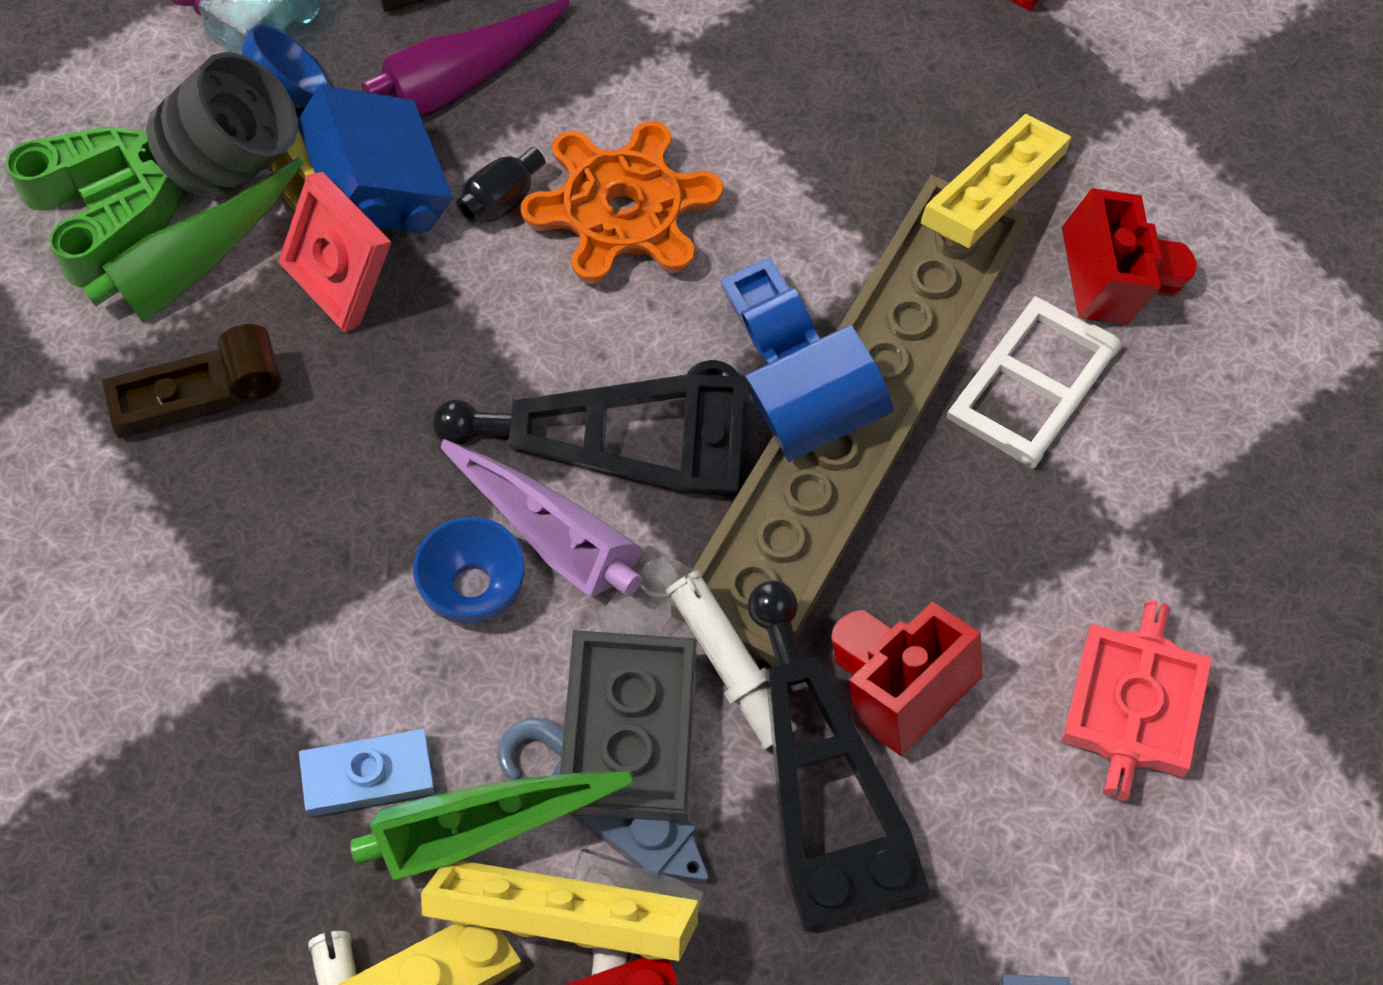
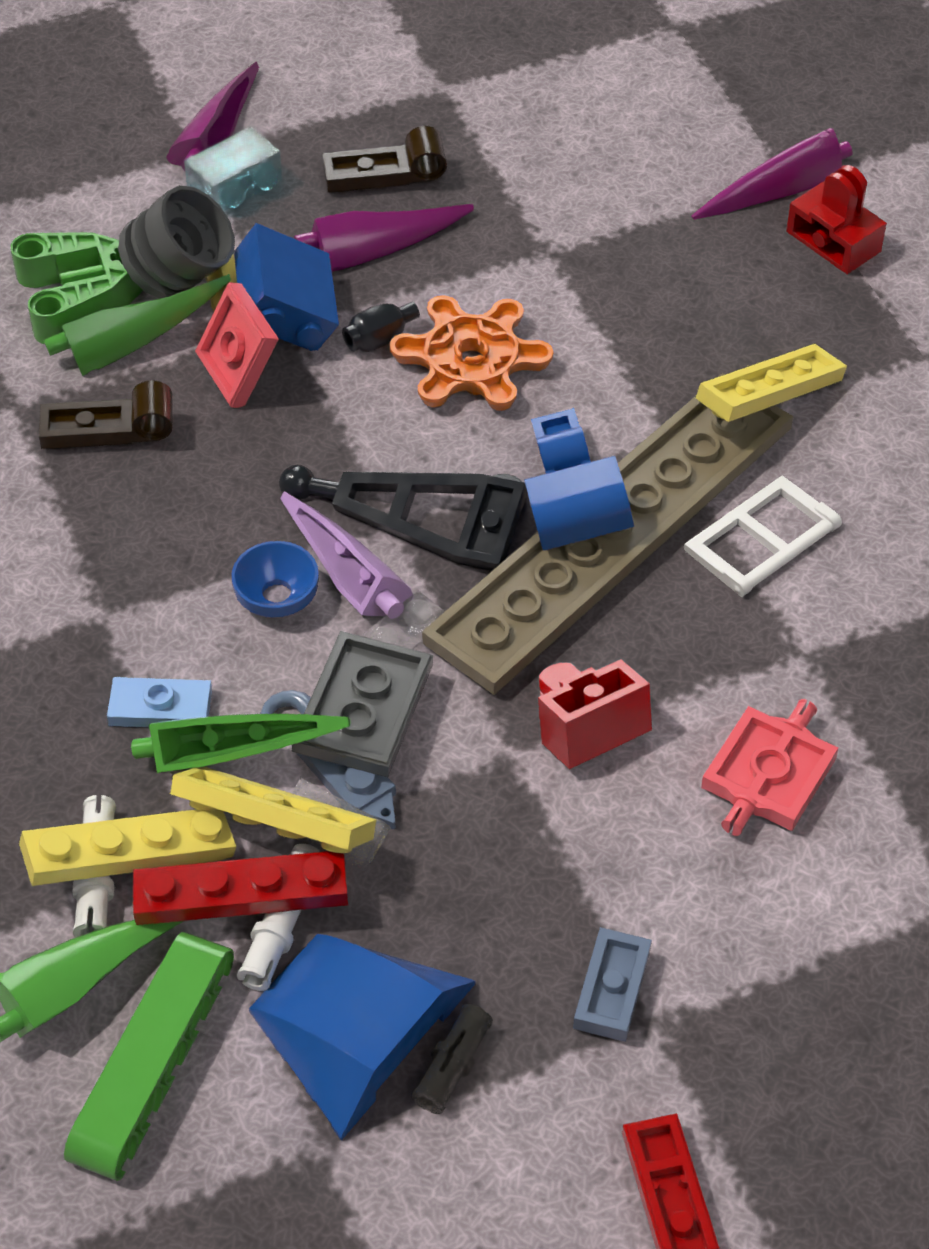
camera: 15 degrees right, 10 degrees down
(286, 61) = (237, 207): blue piece -> none
(726, 652) = (462, 693): white pin -> none
(855, 876) = (512, 843): black plate -> none
(1119, 259) = (855, 456): red brick -> none

